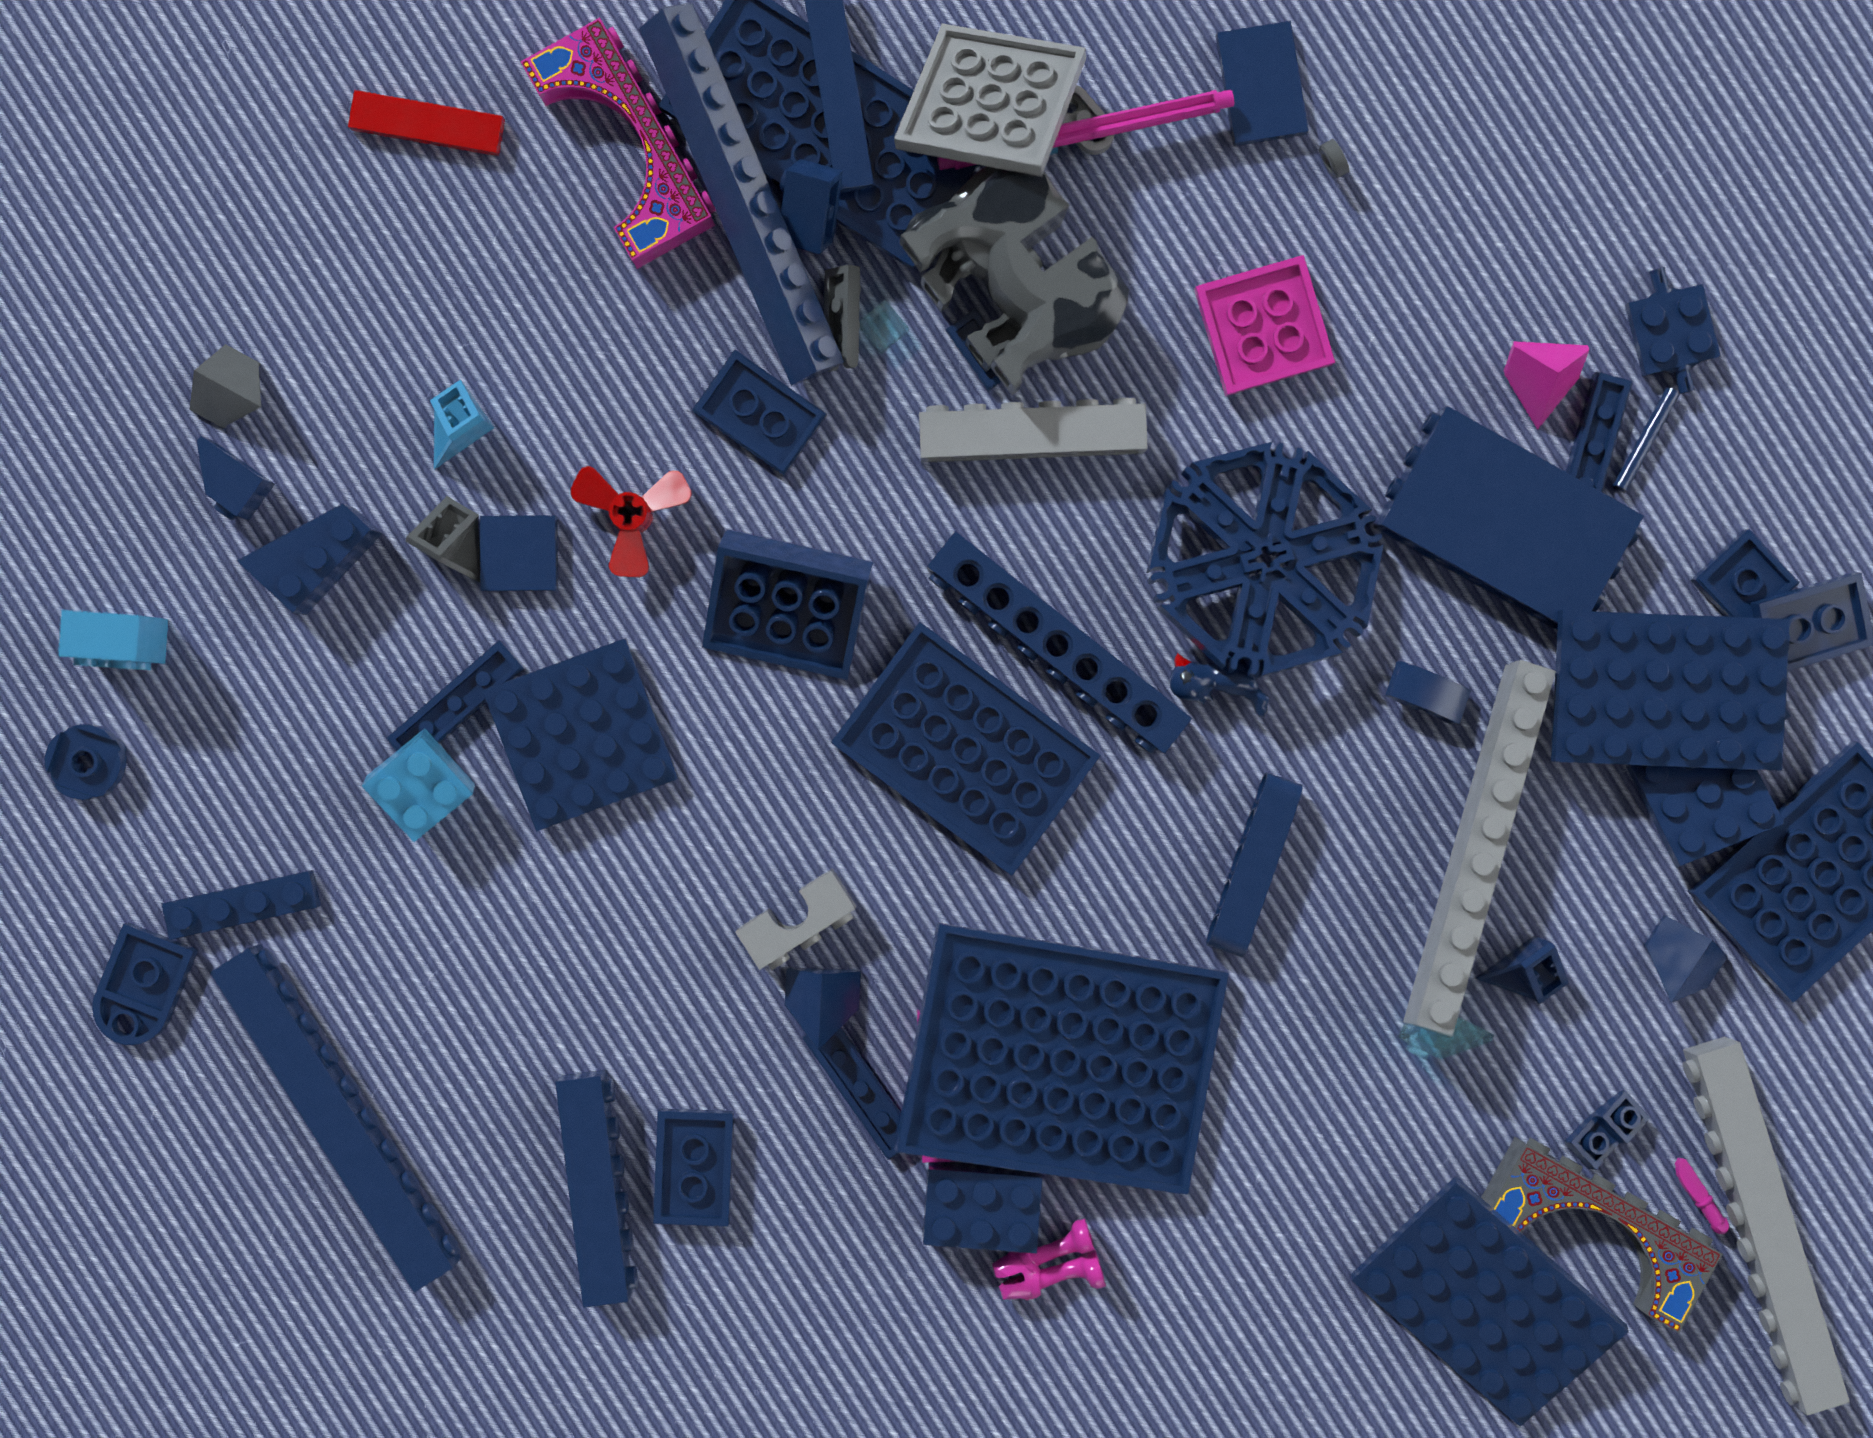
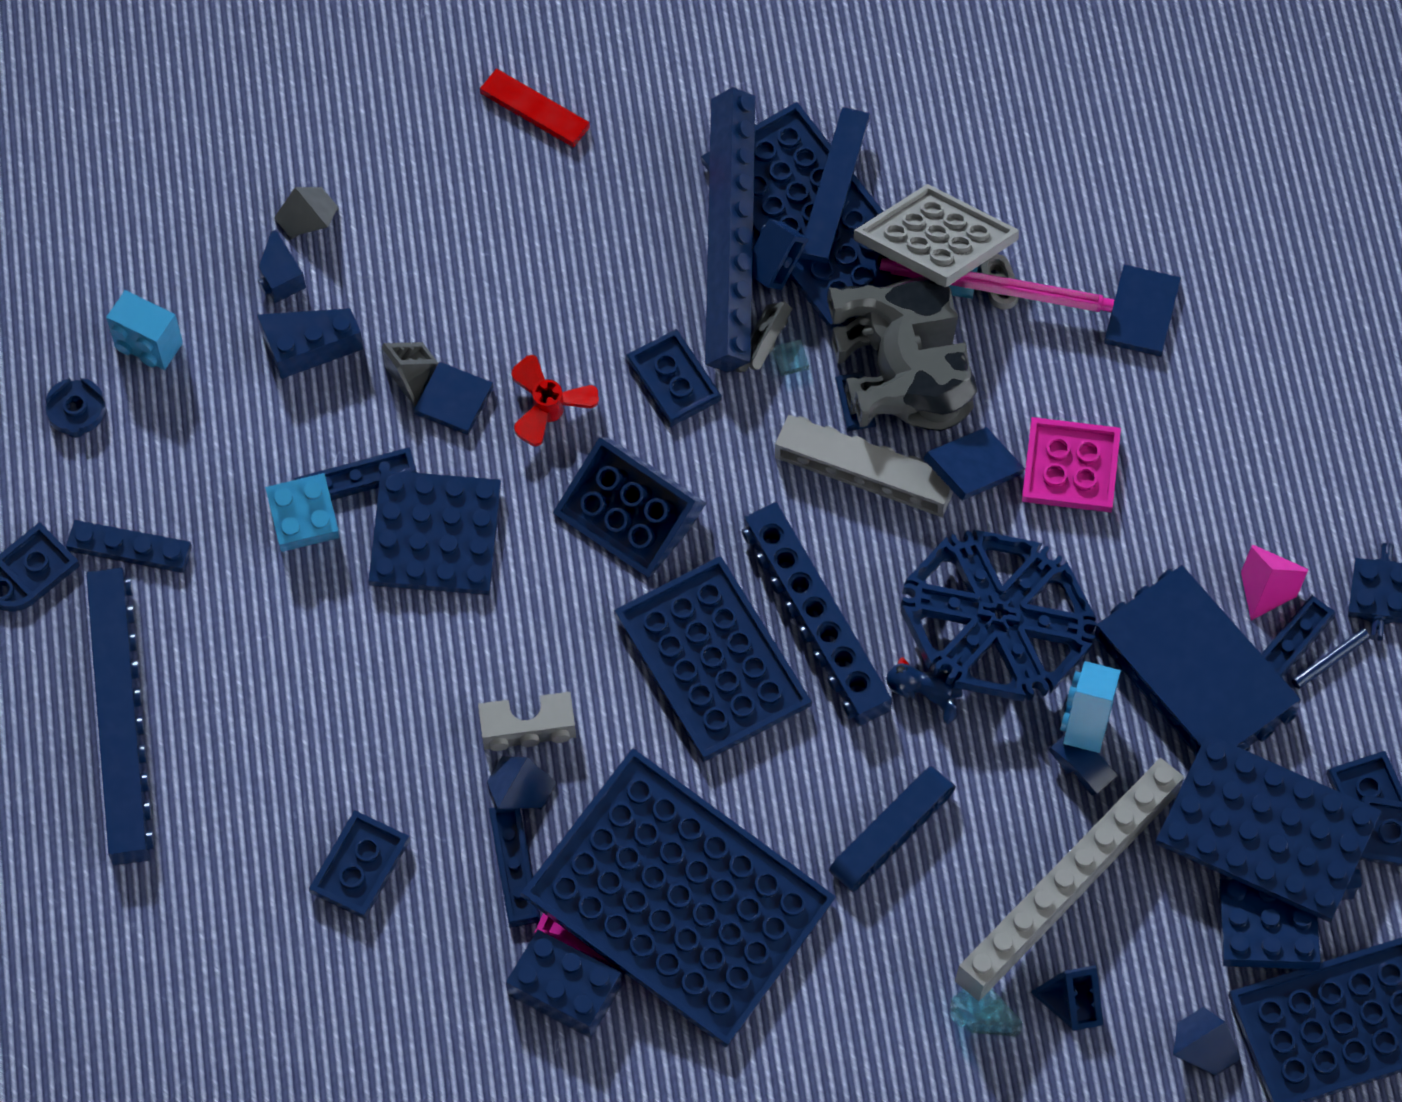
camera: 30 degrees right, 25 degrees down
(456, 422) = (455, 299): dark azure slope -> none
(592, 69) = (677, 219): arch -> none
(595, 1188) = (278, 846): dark blue brick -> none
(1035, 1279) = (579, 1044): dark pink piece -> none
(1158, 379) = (973, 463): none -> dark blue tile
(1334, 159) = (1172, 376): dark grey tile -> none
(1422, 634) = (1089, 706): none -> dark azure brick

